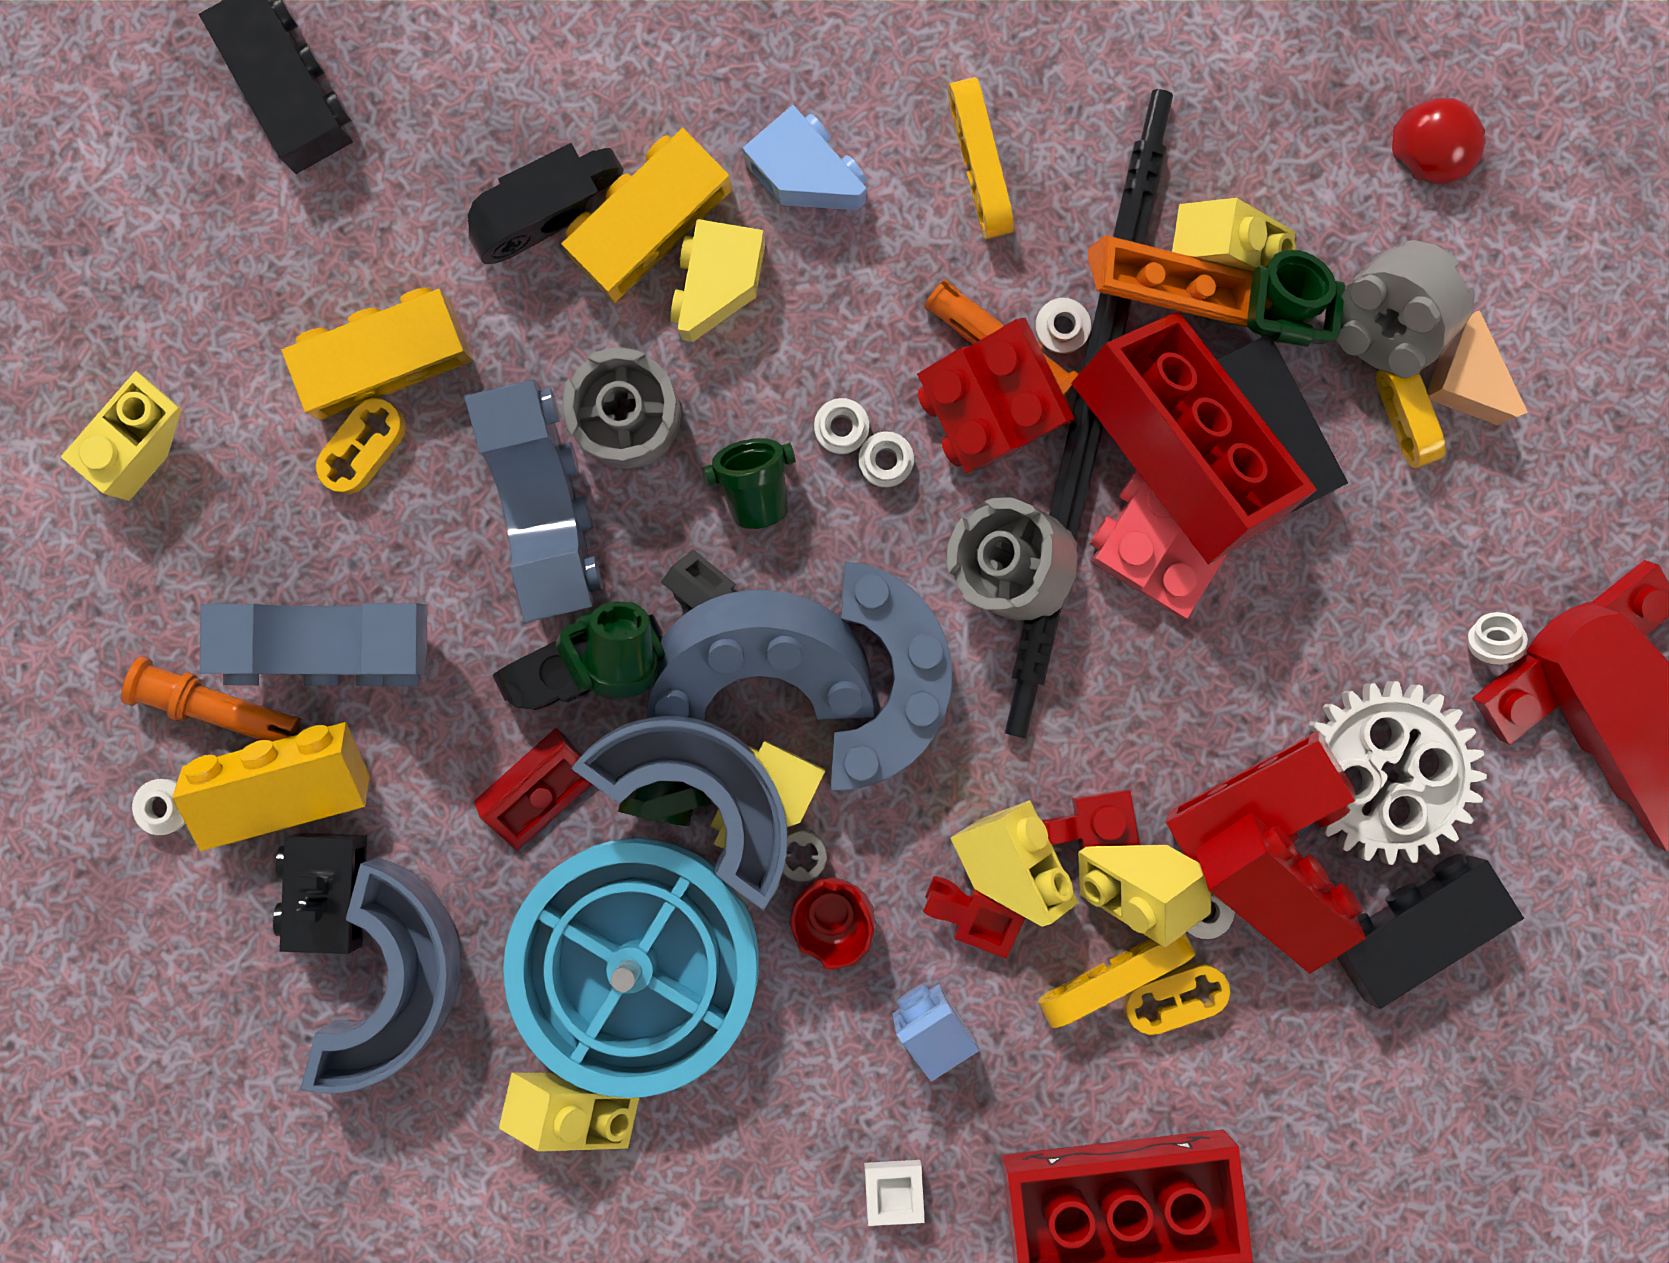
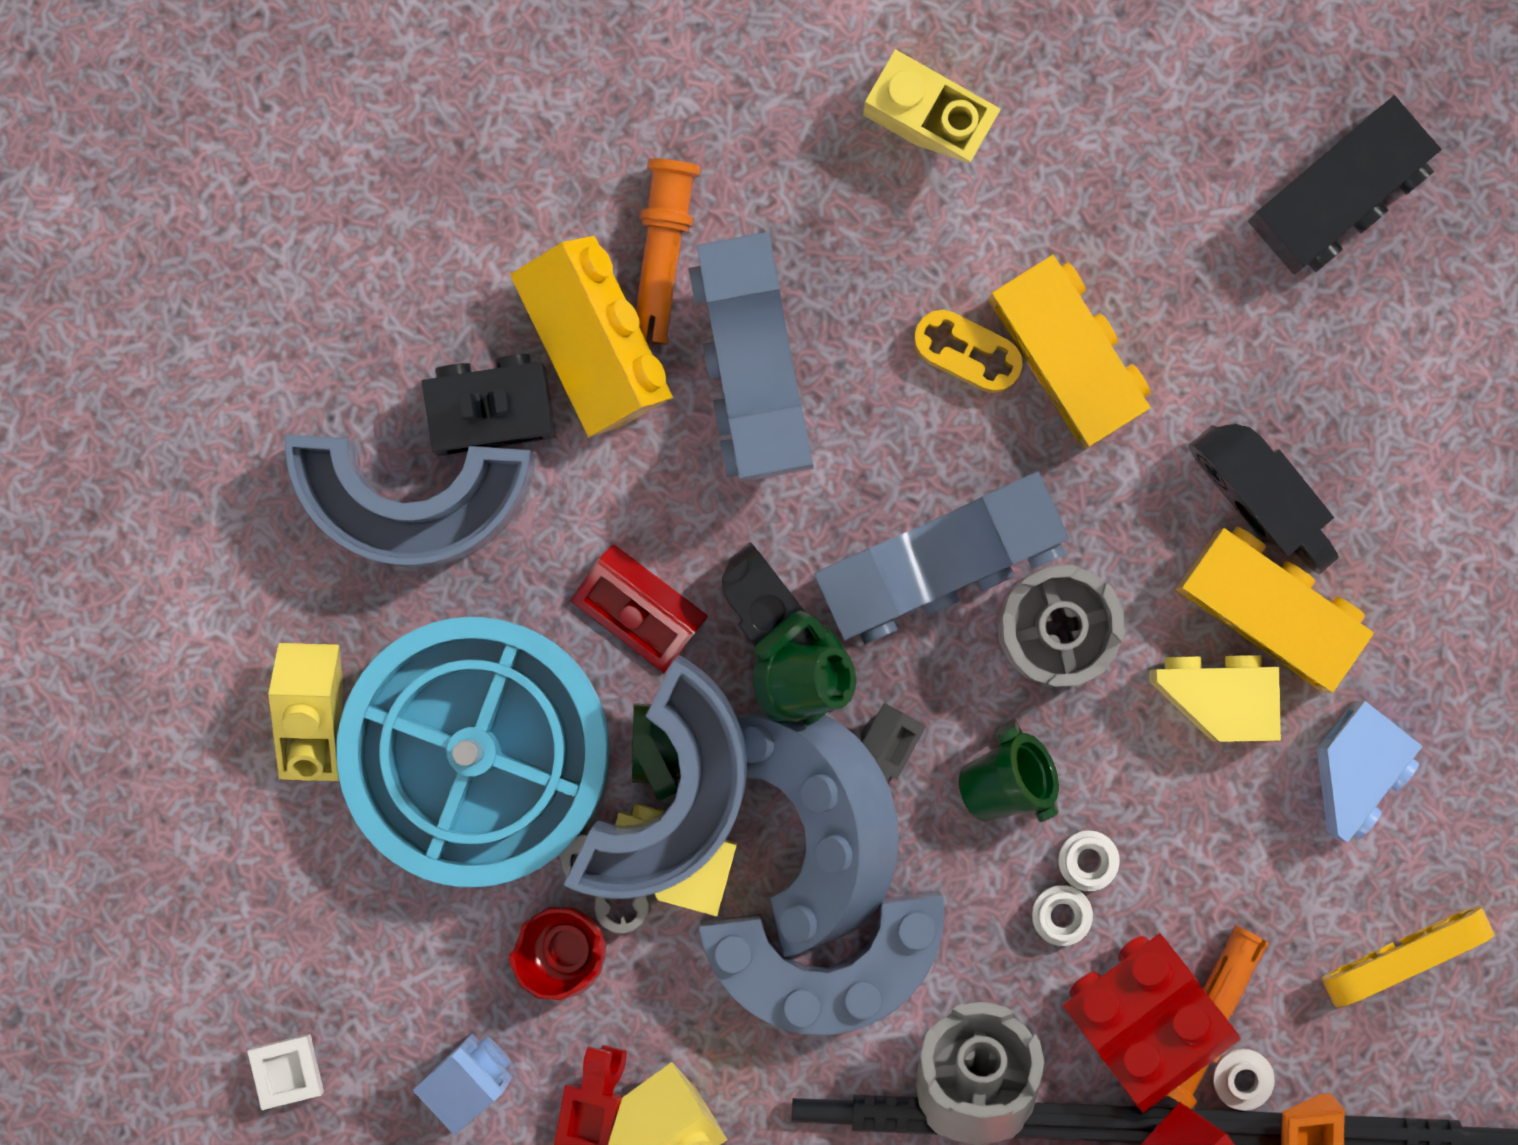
camera: 80 degrees right, 0 degrees up
(143, 810) = (546, 237): white plate -> none

